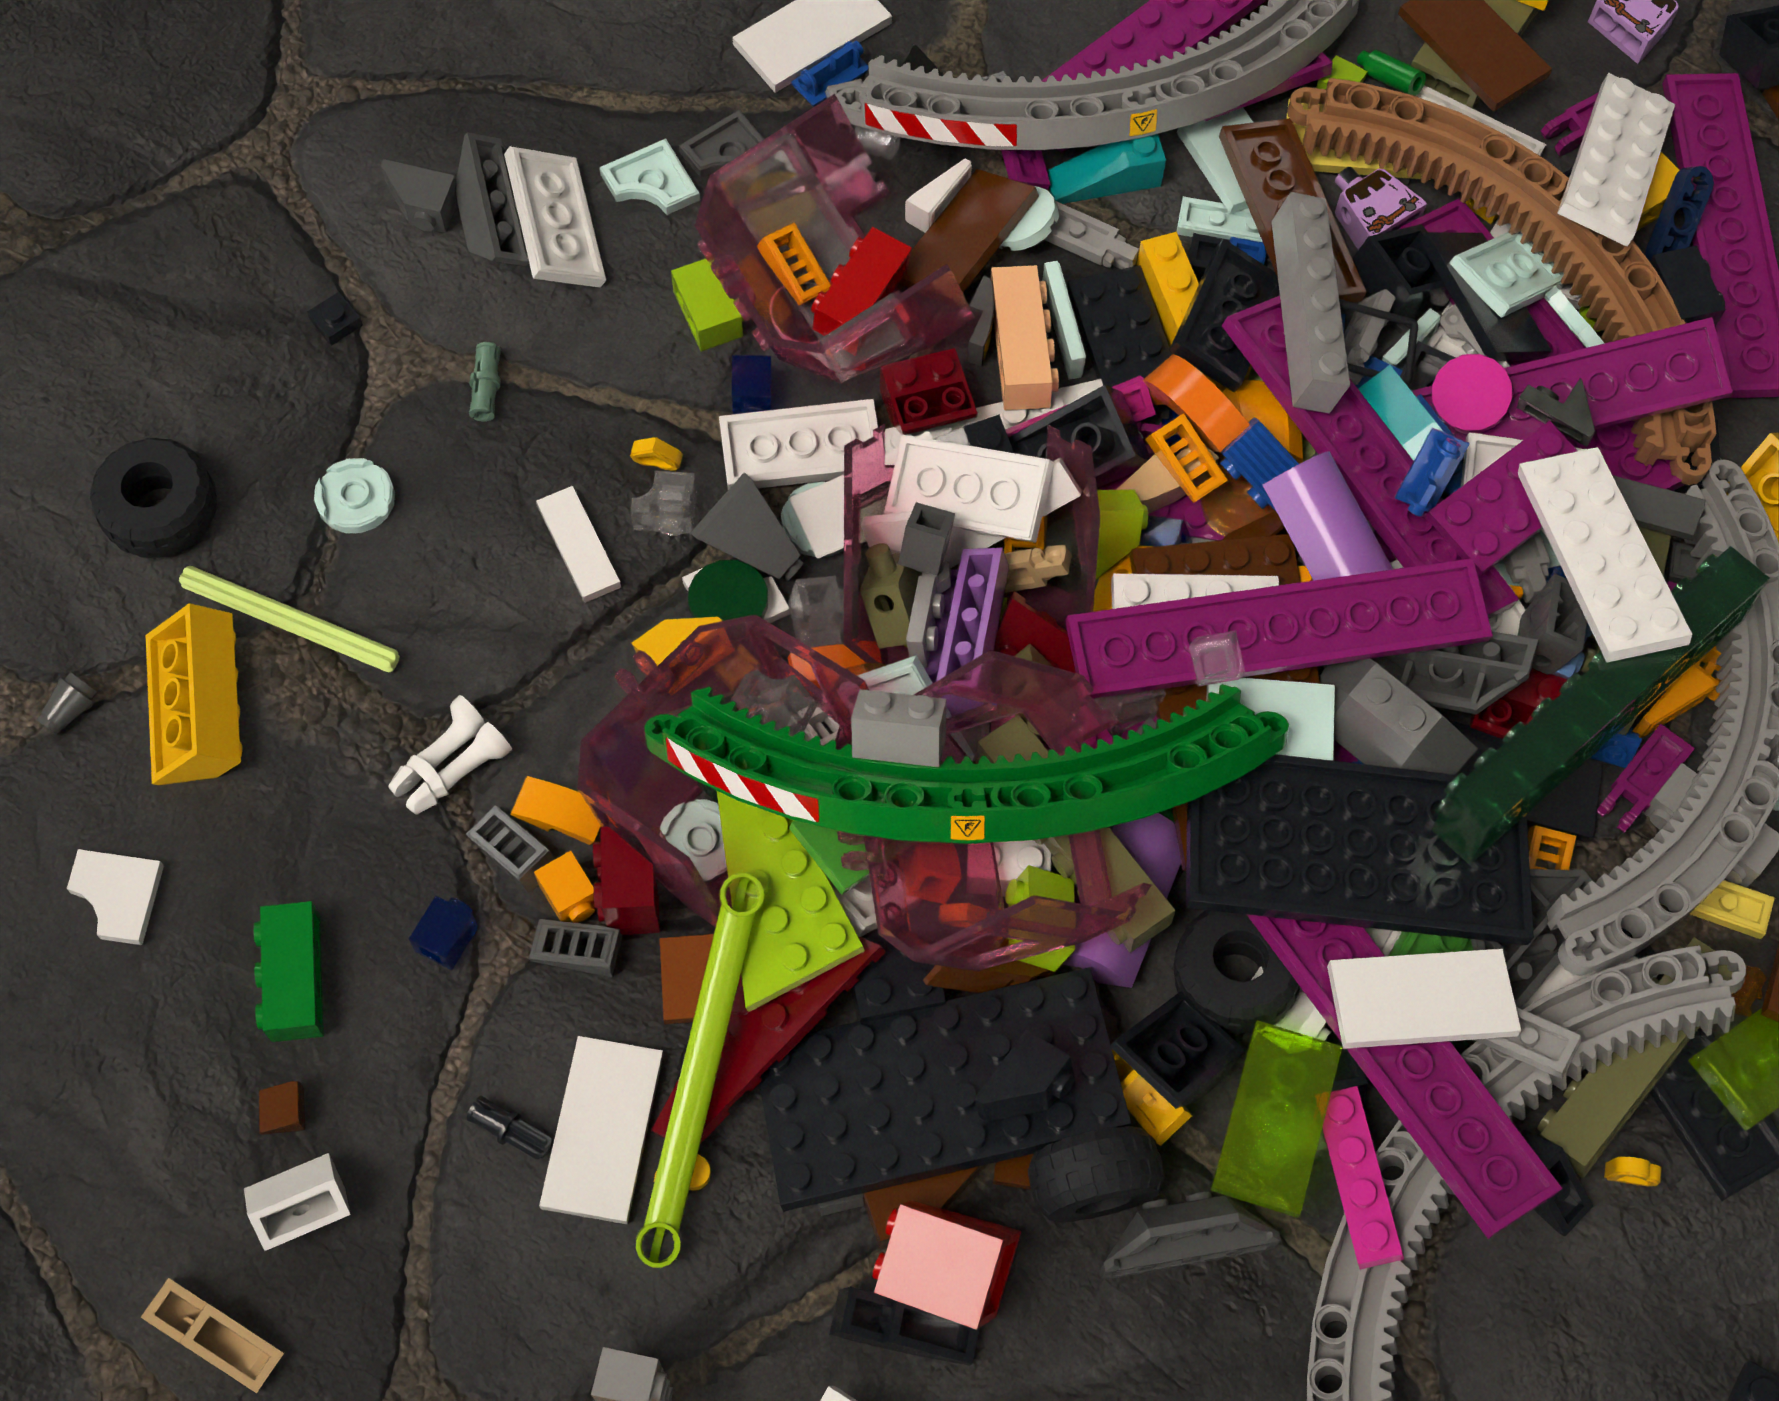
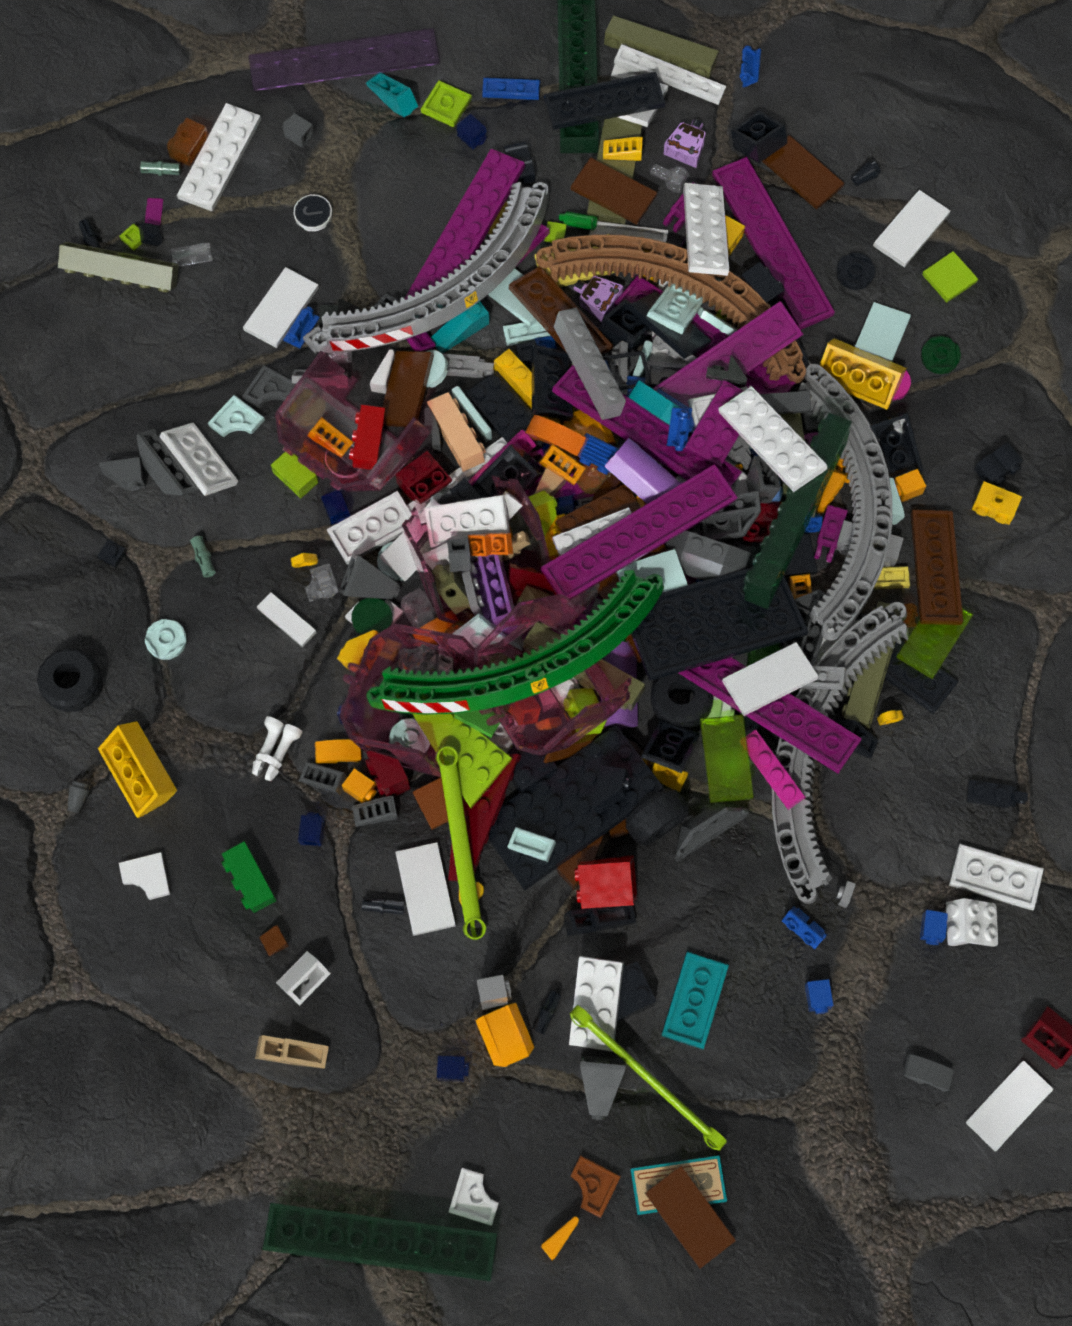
camera: 20 degrees left, 5 degrees up
(289, 619) = (163, 712): yellowish green axle -> none
(832, 1127) = (531, 844): none -> light aqua tile
(898, 728) = (489, 652): light grey brick -> none
(992, 541) = (490, 544): none -> orange slope
(1217, 658) = (617, 560): clear slope -> none
(1471, 393) = (682, 379): dark pink tile -> none
(1589, 62) = (673, 178): none -> clear axle
(1692, 206) = (751, 240): dark blue beam -> none

